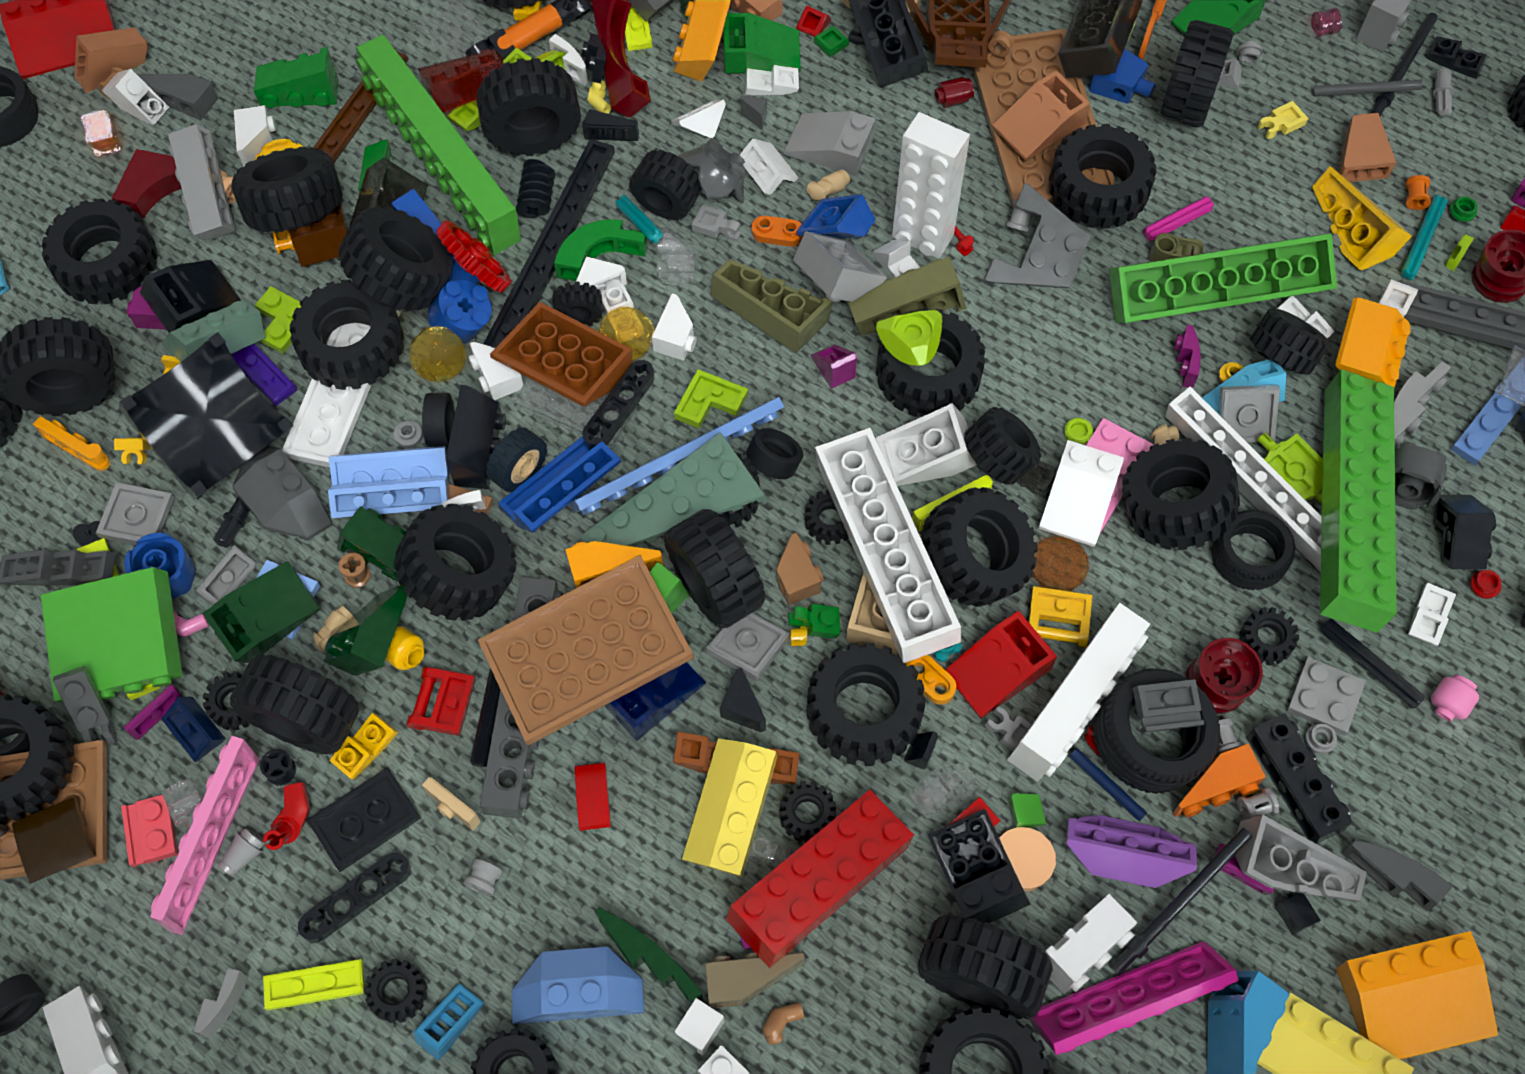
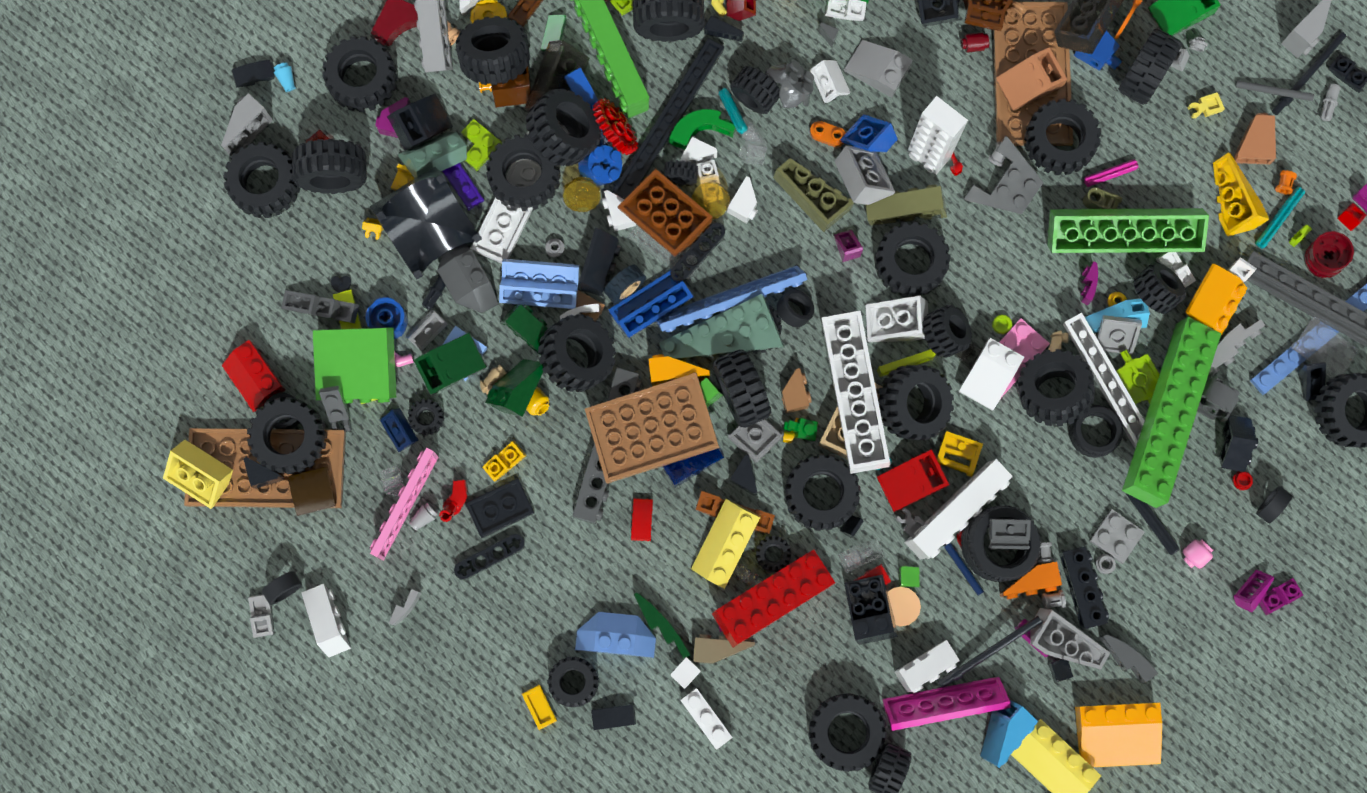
camera: 10 degrees right, 15 degrees up
(74, 444) = (334, 217): light orange plate -> none
(134, 513) = (372, 276): light grey plate -> none
(148, 831) = (368, 492): coral plate -> none
(151, 712) = (374, 415): magenta slope -> none
(274, 761) = (447, 463): black wheel -> none
(294, 704) = (466, 433): black tyre -> none
(313, 984) = (459, 605): neon yellow tile -> none
(347, 570) = (505, 338): medium nougat bush -> none
(381, 977) = (497, 613): black tyre -> none
(437, 419) = (576, 244): black tyre -> none
(447, 1039) = (536, 652): dark azure slope -> none
(450, 703) = (561, 443): red plate -> none
(450, 805) = (553, 510): tan plate -> none
(483, 877) = (568, 559): light grey wheel -> none
(486, 723) = (582, 459): black axle -> none
(535, 189) = (663, 73): black piece -> none
(703, 119) = (790, 32): white slope -> none
(707, 392) = (759, 252): lime plate -> none
(714, 221) = (784, 120): light grey plate -> none
(778, 1019) = (732, 676): medium nougat arm -> none
(816, 526) = (813, 362): black tyre -> none
(828, 185) = (870, 104): tan arm -> none
(895, 257) = (906, 173): white slope -> none
(912, 336) = (902, 244): lime hat -> none
(934, 677) = (867, 480): light orange plate -> none
(985, 966) = (860, 672): black tyre -> none
(1060, 564) = (967, 417): clear orange tile -> none
(1130, 850) = (966, 614): medium lavender wedge -> none
(1235, 667) = (1062, 509): dark red wheel -> none
(1277, 622) = (1099, 483): black tyre -> none
(1326, 22) = (1261, 28): clear pink wheel -> none
(1431, 614) = (1200, 494): white slope -> none
(1463, 209) = (1318, 197): green plate -> none

